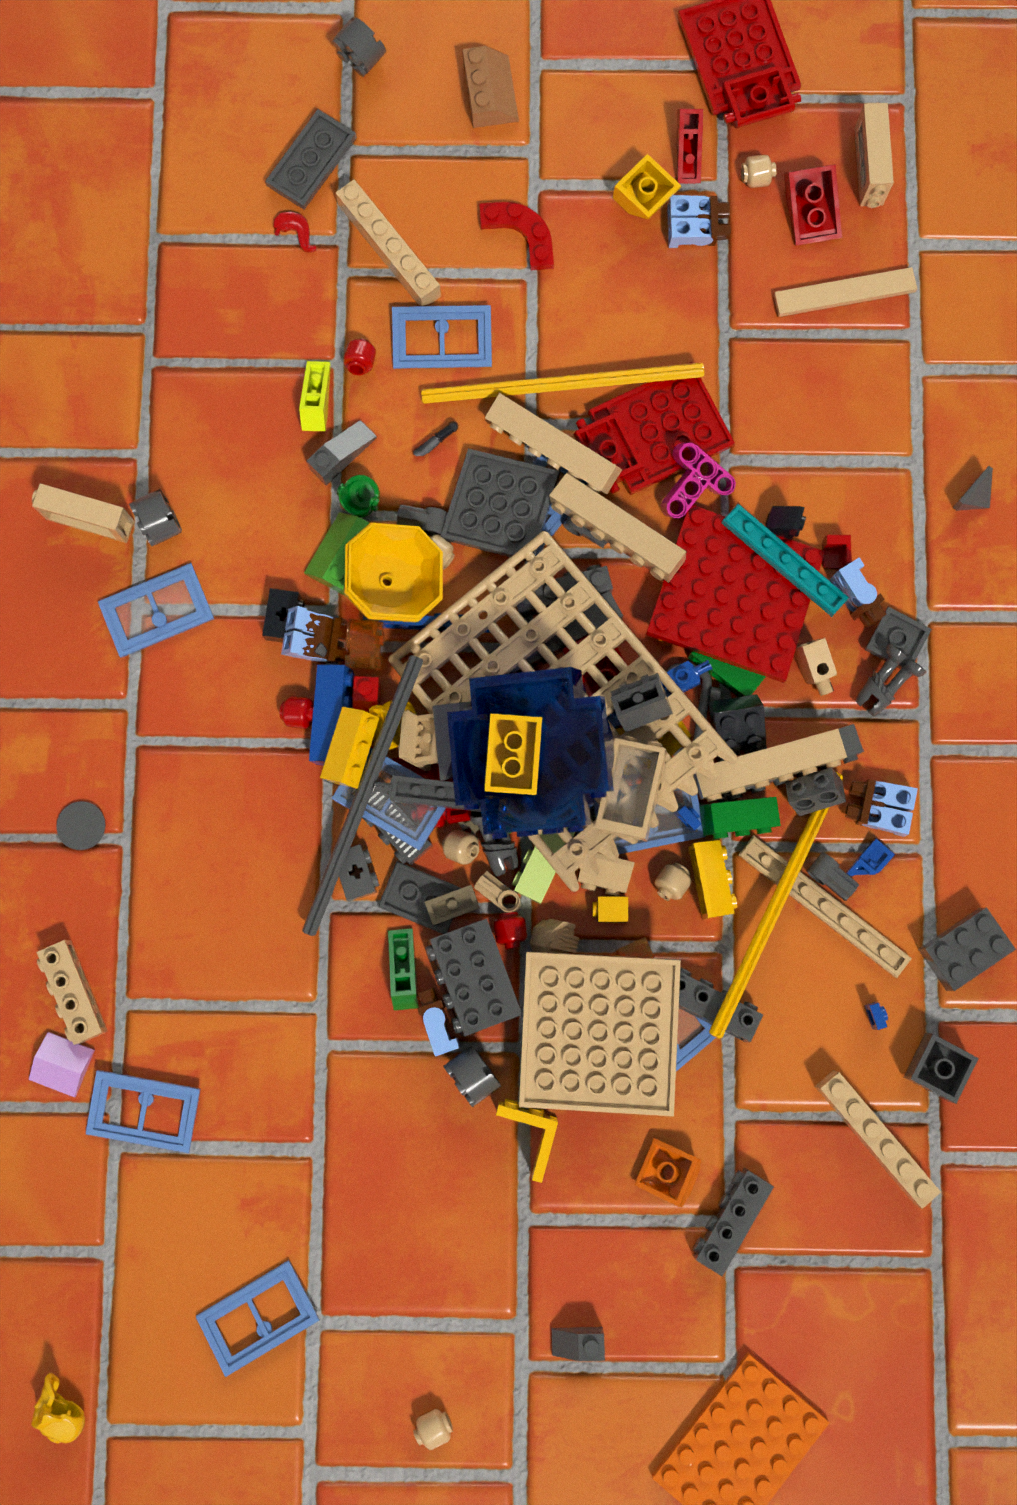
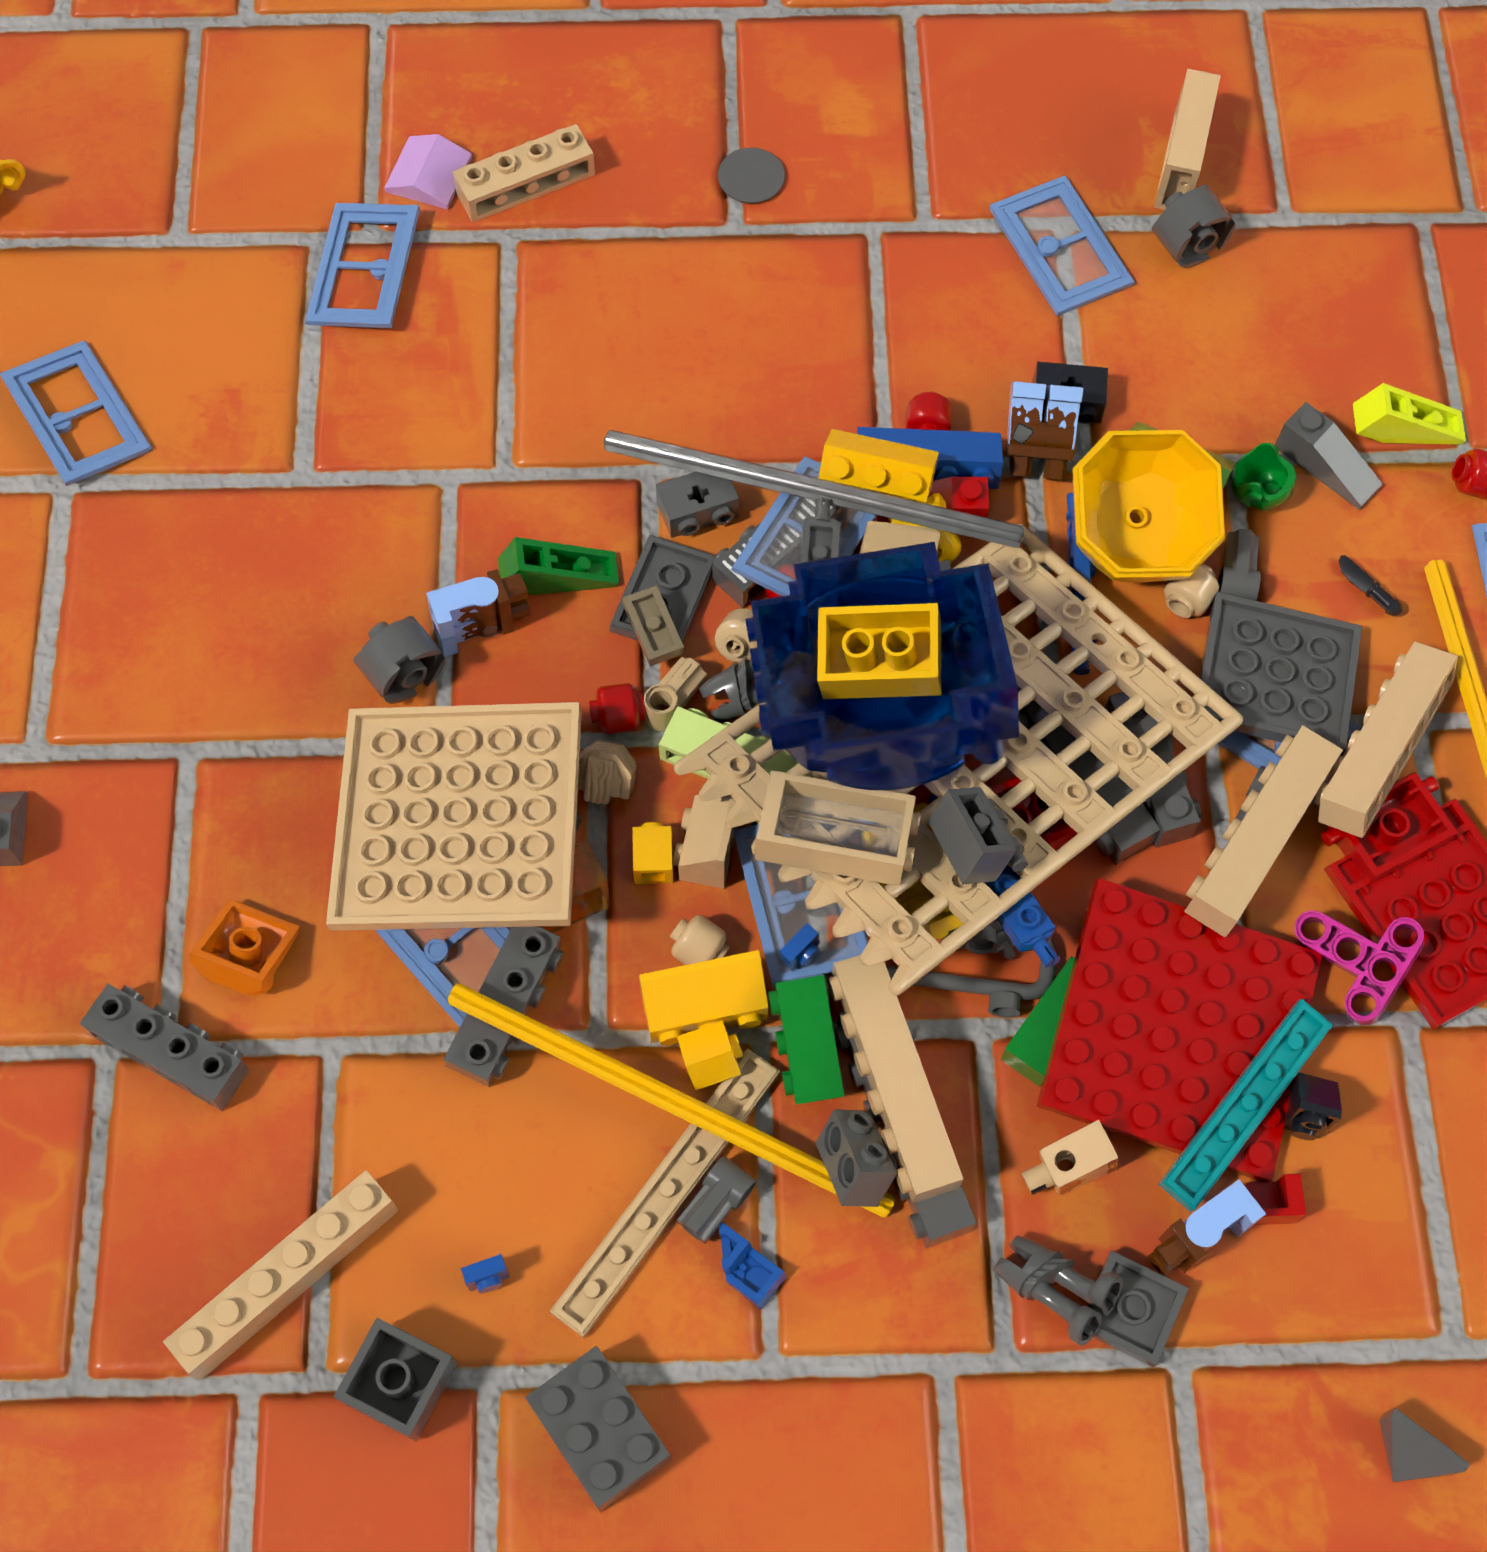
camera: 85 degrees right, 15 degrees down
(364, 644) = (1037, 490): clear orange brick -> none
(473, 978) = (546, 647): dark grey brick -> none
(535, 1117) = (302, 762): yellow bracket -> none
(740, 723) = (958, 1030): black piece -> none
(746, 876) = (710, 1054): none -> yellow brick
(874, 805) = (843, 1267): light blue hips -> none

